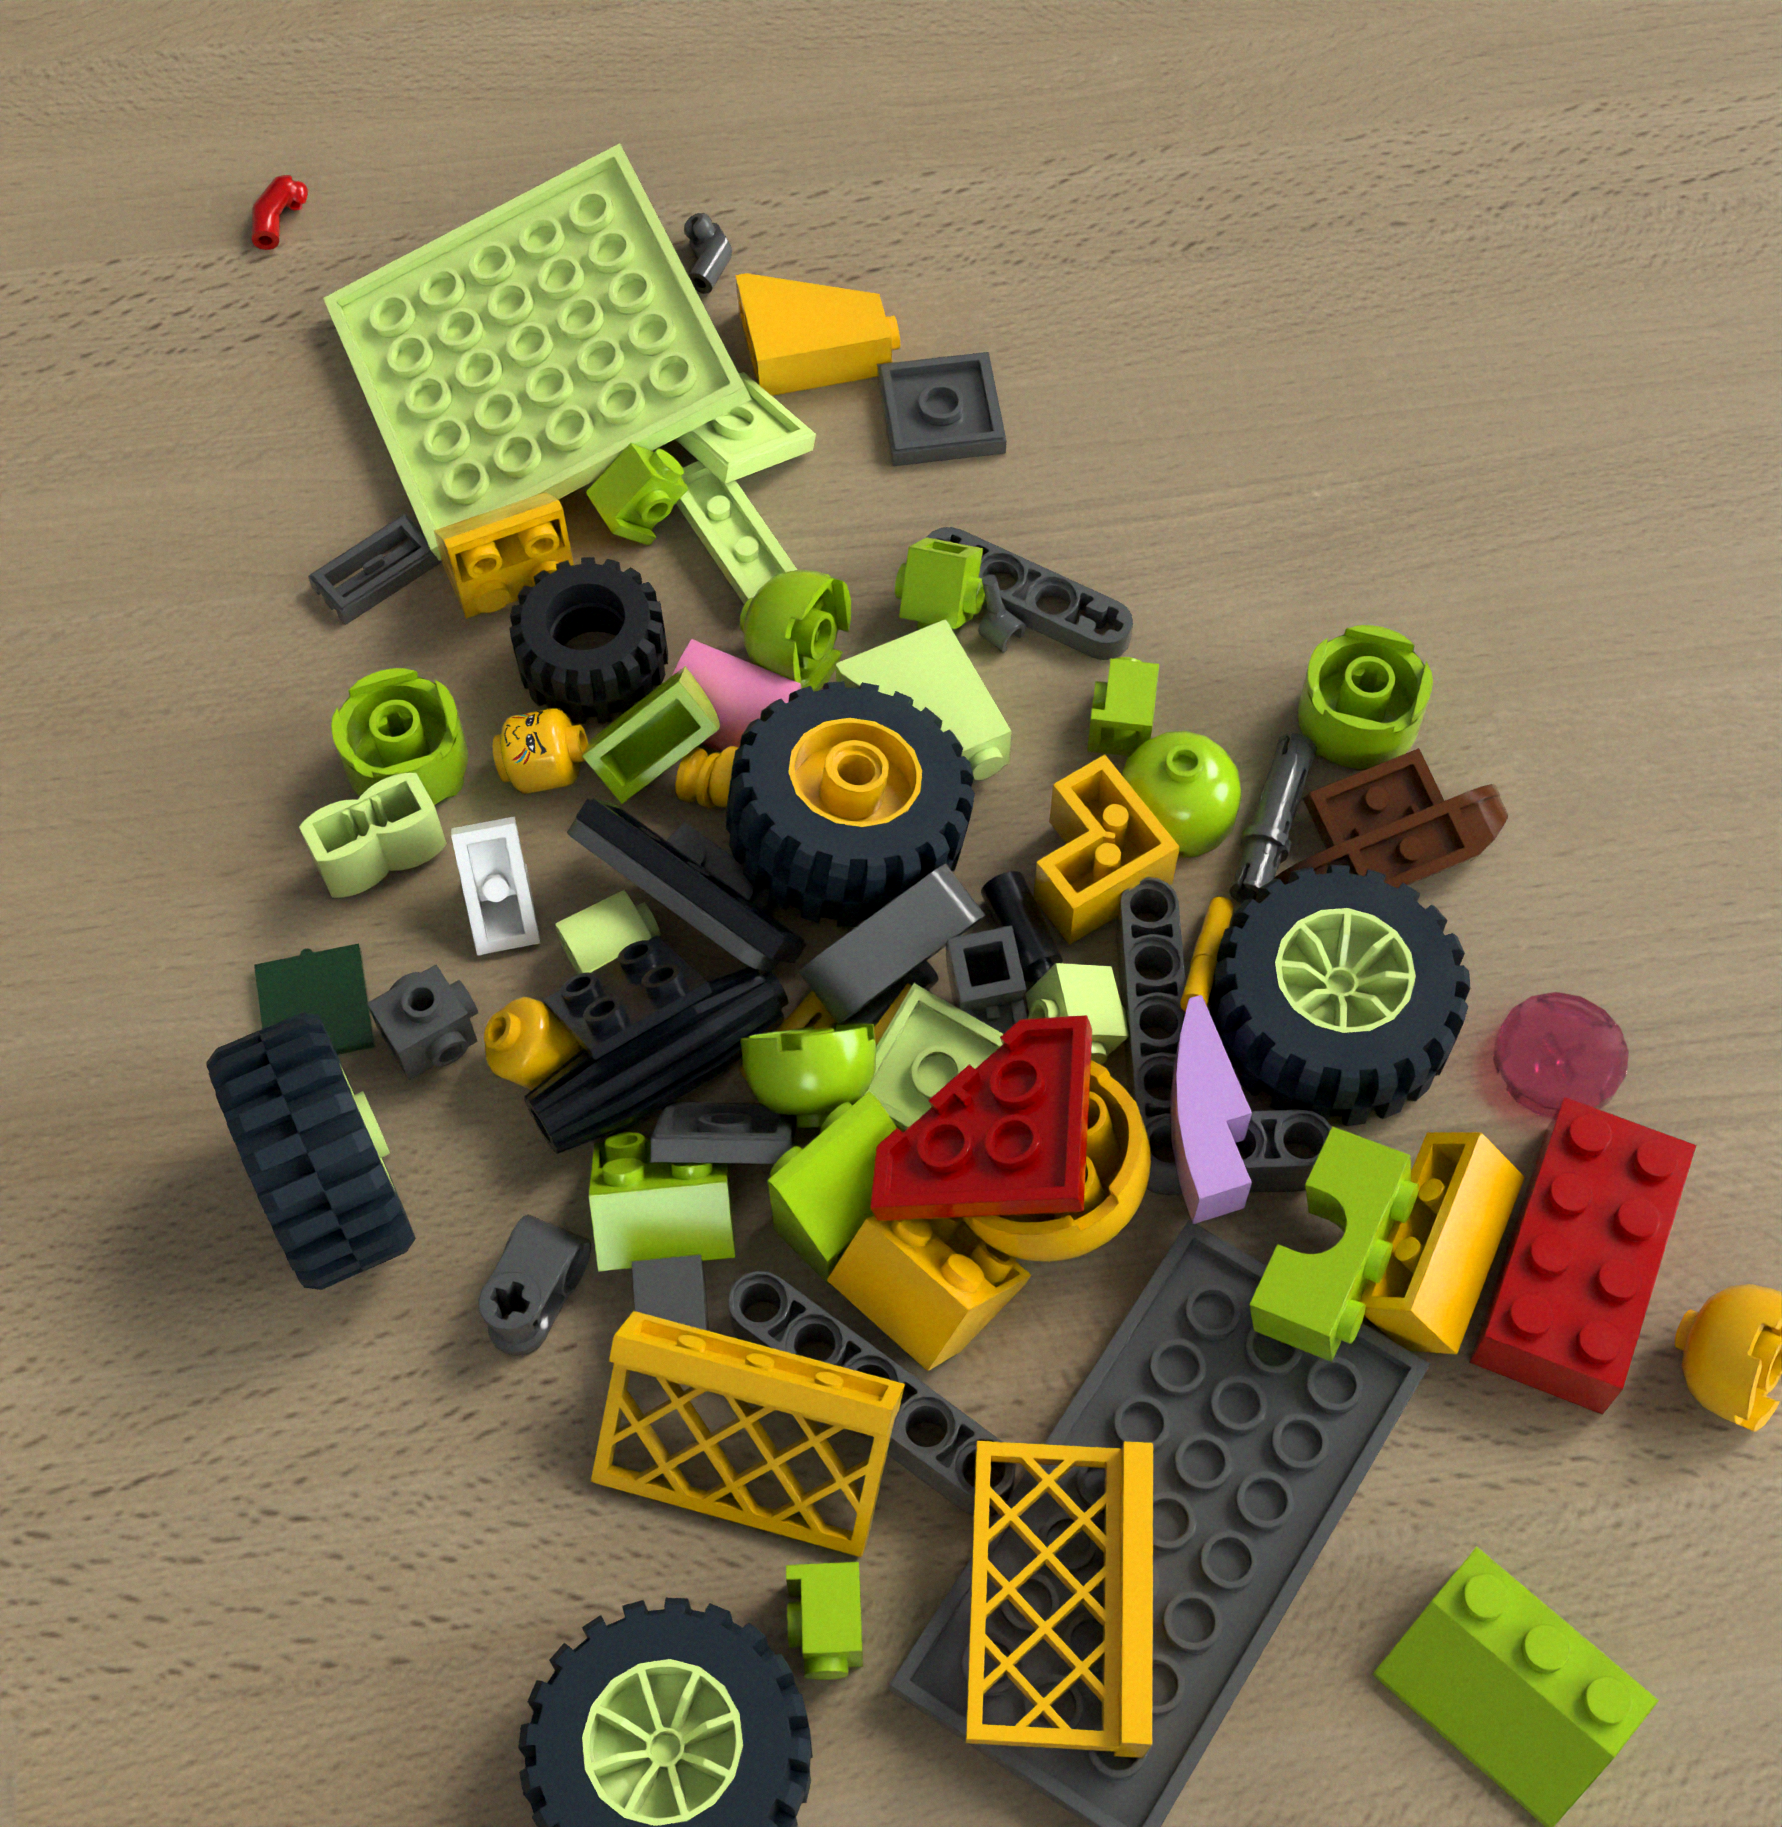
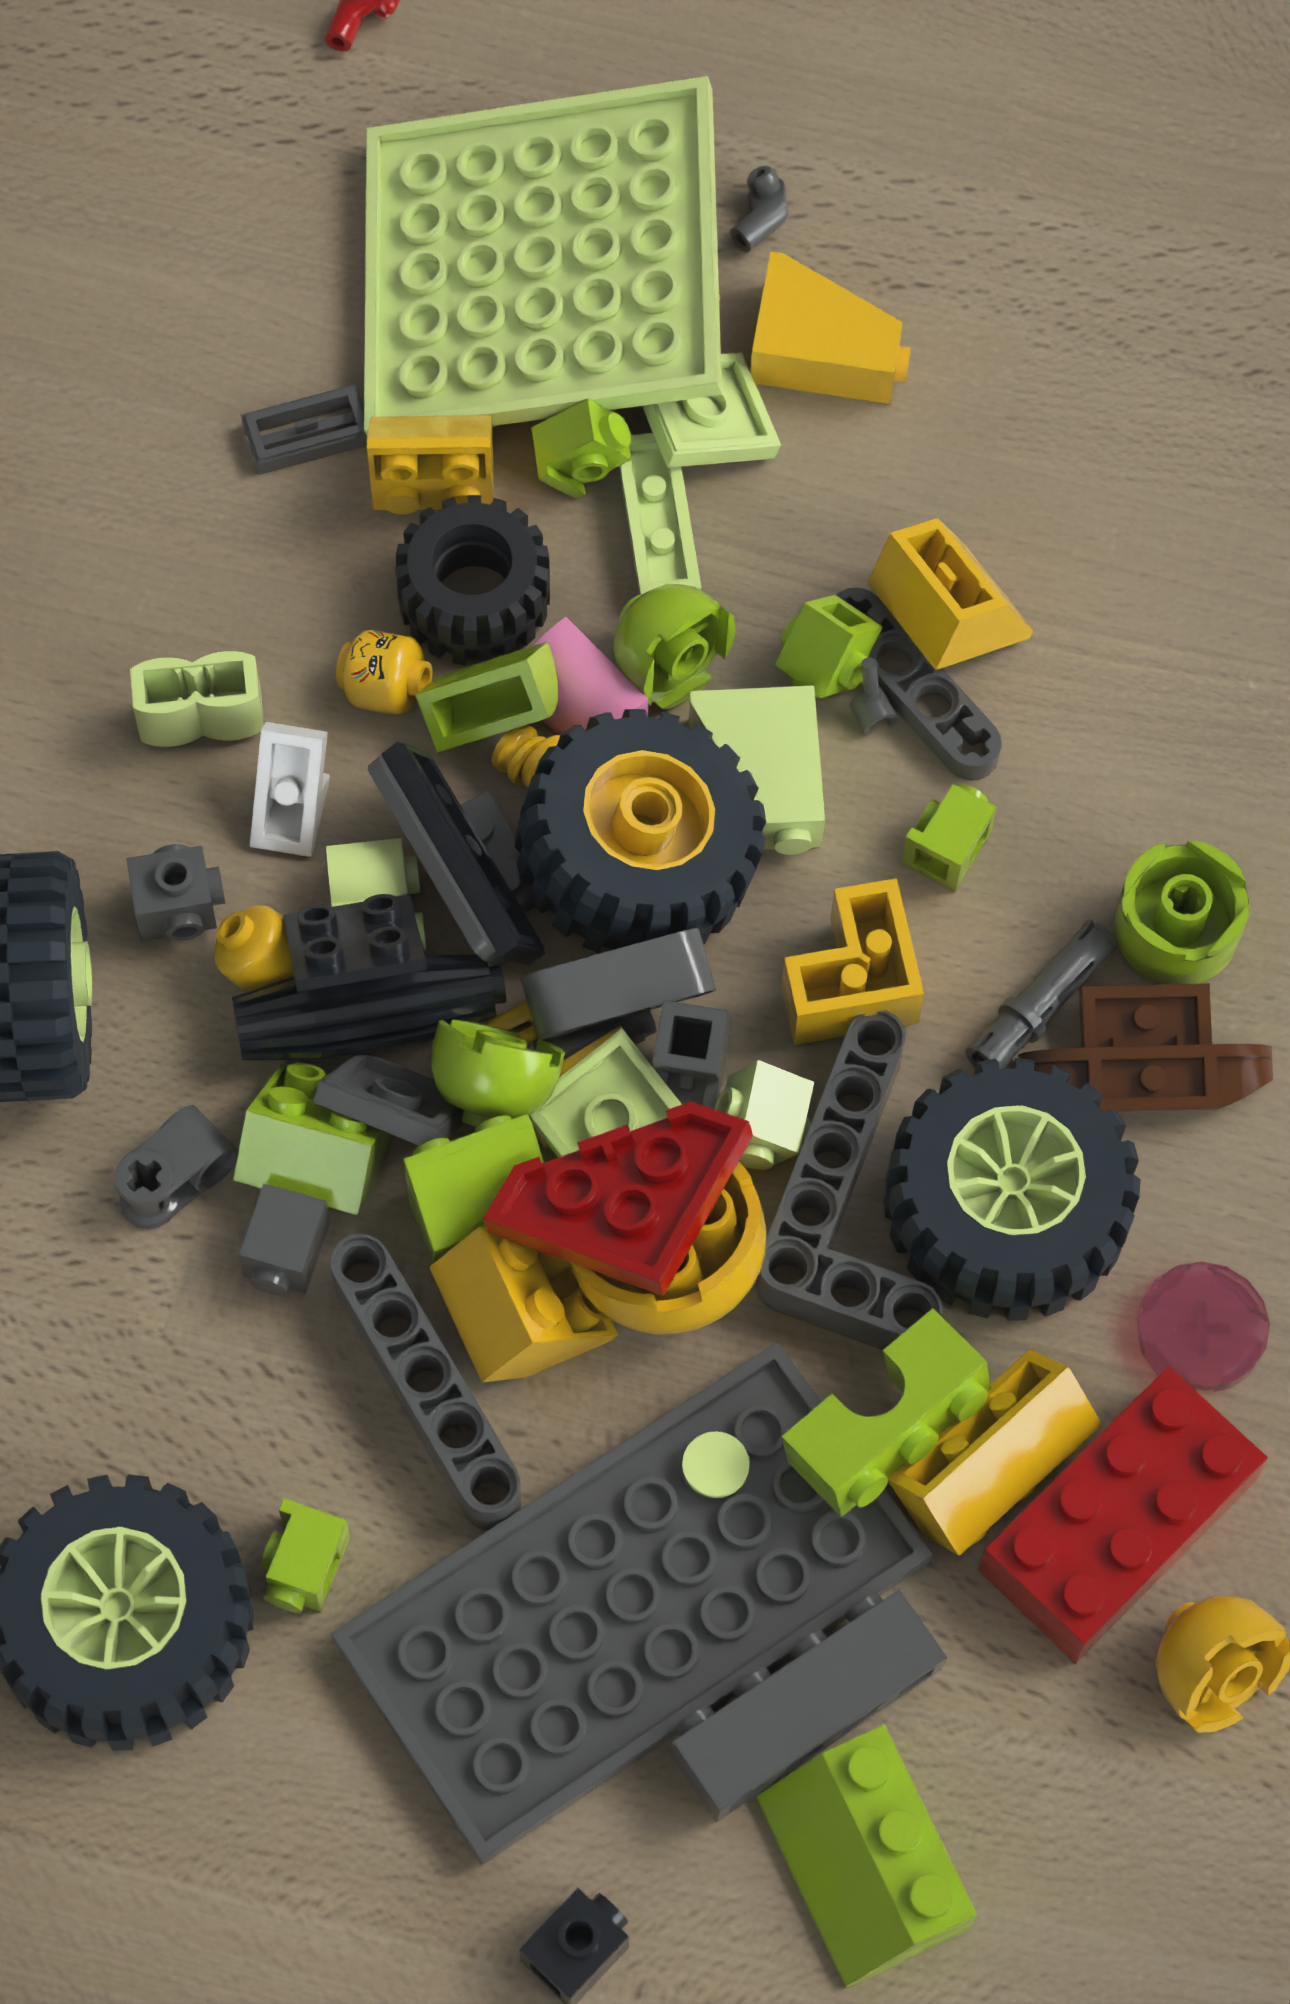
camera: 20 degrees right, 5 degrees up
(320, 984) = (94, 829): clear green piece -> none
(399, 727) = (260, 606): lime brick -> none
(758, 1376) = (314, 1322): yellow fence -> none
(941, 409) = (919, 460): dark grey tile -> none
(1014, 905) = (755, 1009): black cylinder -> none
(1024, 503) = (944, 596): none -> yellow slope
(1126, 1597) = (559, 1643): yellow fence -> none
(1187, 787) = (967, 939): lime cylinder -> none
(1187, 1360) = (715, 1464): none -> yellowish green piece
(1206, 949) = (884, 1129): yellow piece -> none
(1207, 1120) = (824, 1255): lavender slope -> none
(1385, 1561) = (807, 1703): none -> dark grey brick

